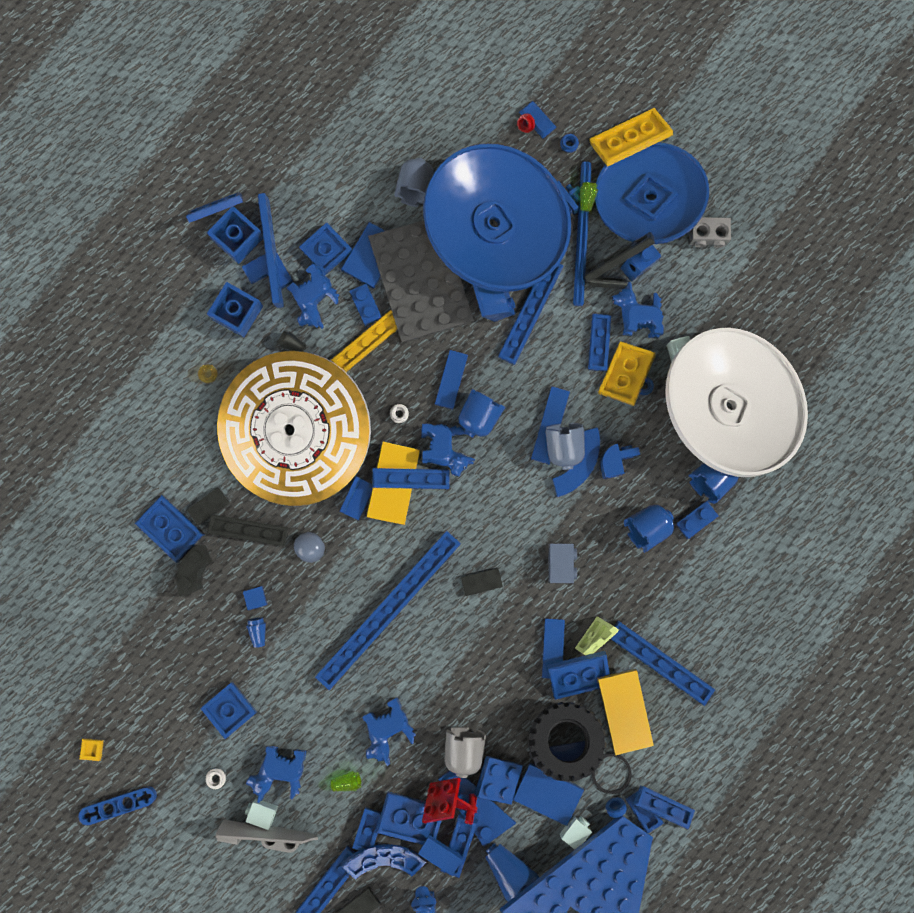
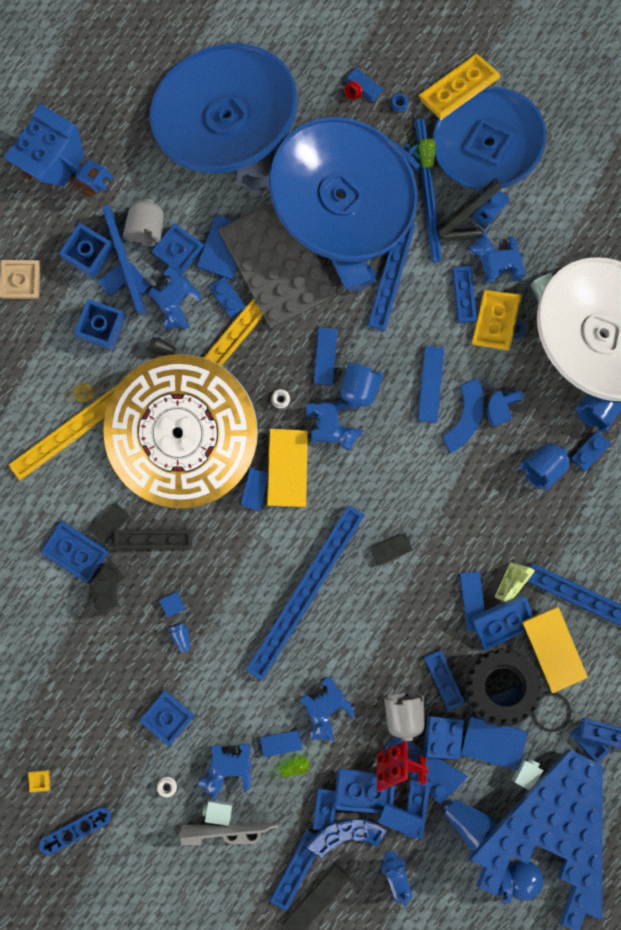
camera: 10 degrees left, 0 degrees up
(166, 251) = (20, 279): none -> tan plate
(176, 414) = (61, 437): none -> yellow tile
(214, 207) = (61, 226): blue tile -> none
(220, 132) = (53, 152): none -> blue piece
(296, 217) = (144, 223): none -> light grey cylinder
(309, 547) = (216, 545): sand blue hair -> none
(336, 755) = (281, 743): none -> blue tile
(390, 93) = (218, 82): none -> blue dish
(410, 478) = (304, 460): blue tile -> none
(510, 722) = (444, 680): none -> blue tile
(562, 563) = (466, 516): sand blue brick -> none
(565, 444) = (450, 400): sand blue cylinder -> none
(616, 807) = (562, 743): blue tile -> none
(708, 227) = (551, 163): light grey brick -> none

